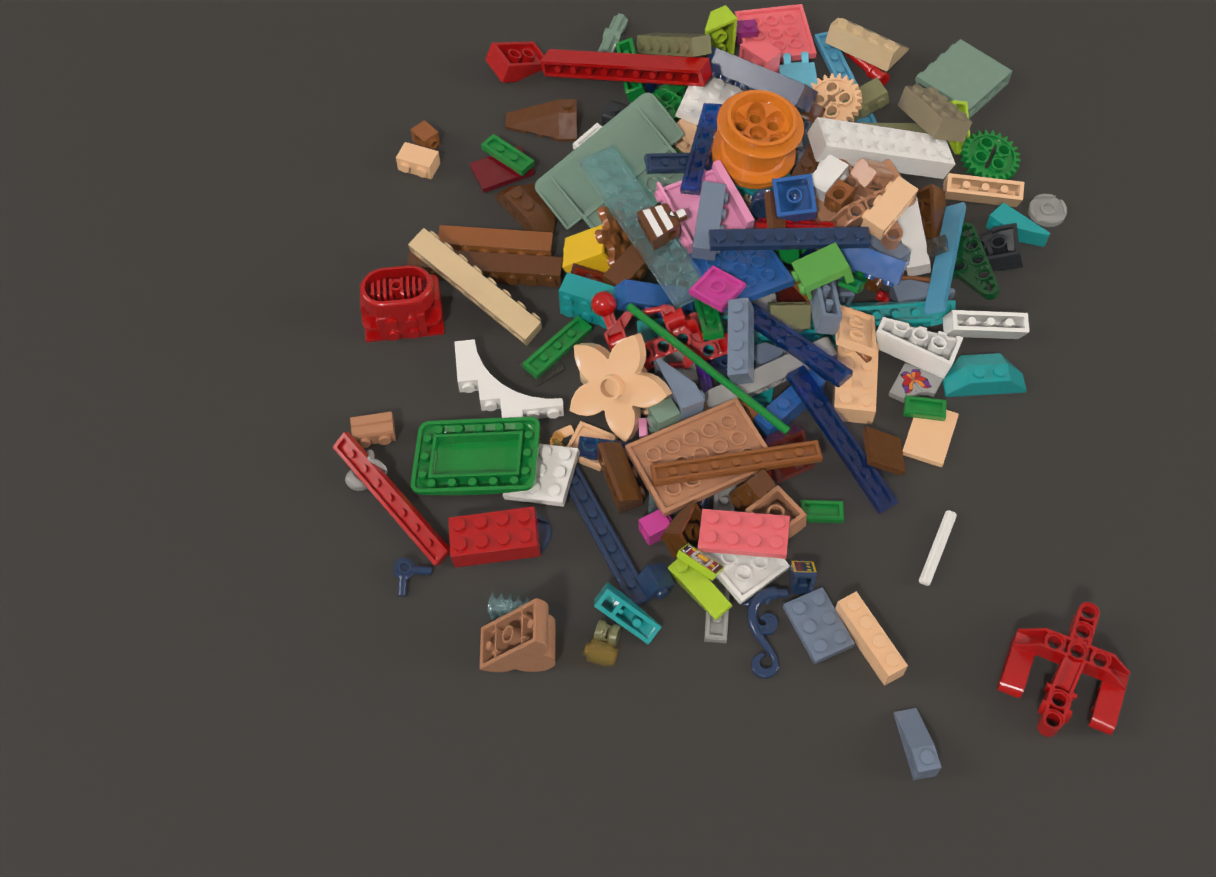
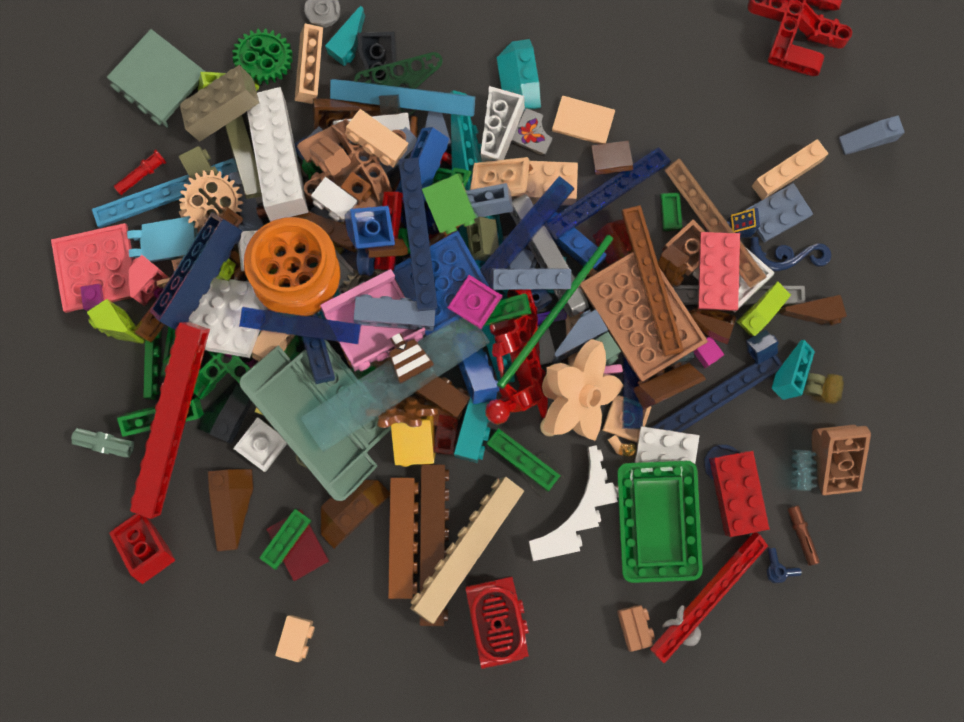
camera: 95 degrees left, 20 degrees up
(425, 135) = (260, 635): dark orange brick -> none
(449, 600) = (800, 527): none -> copper pin
(674, 44) = (138, 367): olive brick -> none
(694, 656) = (820, 311): none -> reddish brown slope
(700, 561) = (751, 306): tile -> none
(806, 544) = (712, 218): none -> medium nougat tile
(864, 44) = (112, 171): tan slope -> none
(924, 408) = (561, 123): green tile -> none
(937, 548) = (695, 116): white axle -> none
(986, 324) = (473, 65): white brick -> none

